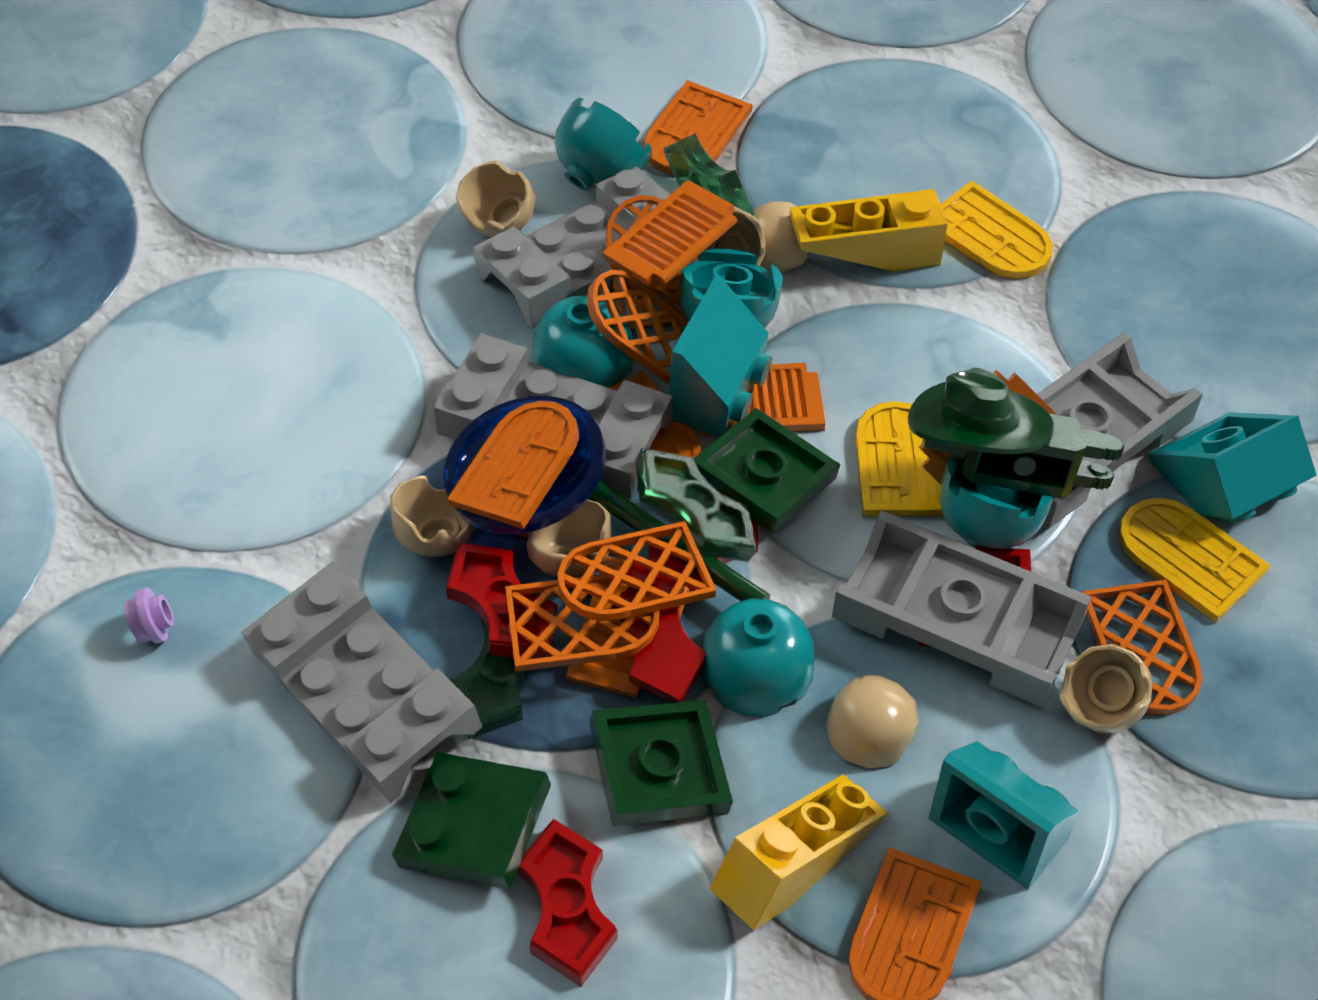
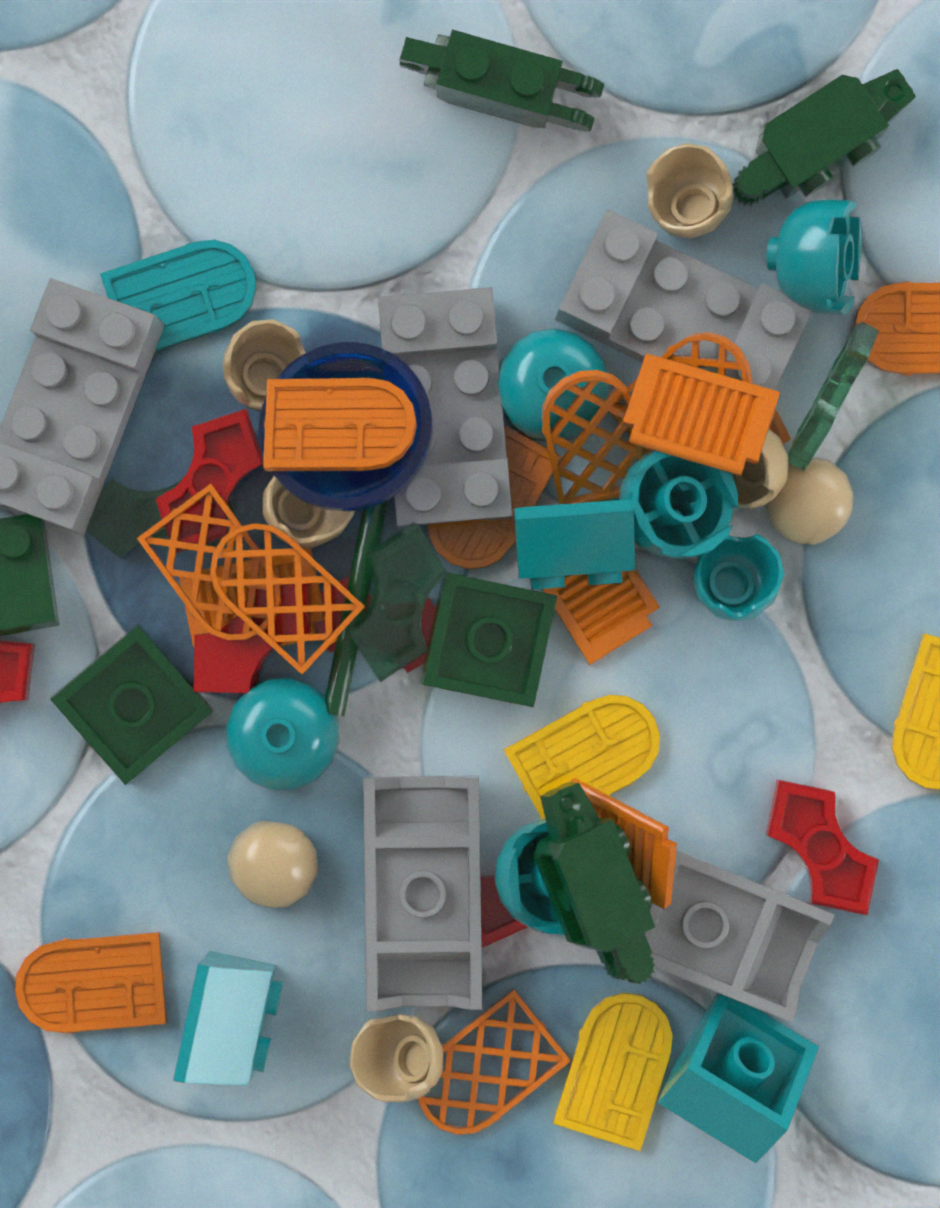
camera: 60 degrees right, 35 degrees up
(149, 616) = (33, 180): lavender plate -> none
(326, 271) = (500, 80): none -> dark green hinge
(327, 535) = (187, 288): none -> teal window
(511, 116) = (821, 133): none -> dark green hinge
(793, 850) = (110, 862): yellow slope -> none
(814, 290) = (738, 577): none -> teal hair
(875, 231) = (852, 595): yellow slope -> none
(980, 415) = (582, 841): dark green hat -> none
(1038, 343) = (836, 869): none -> red tile

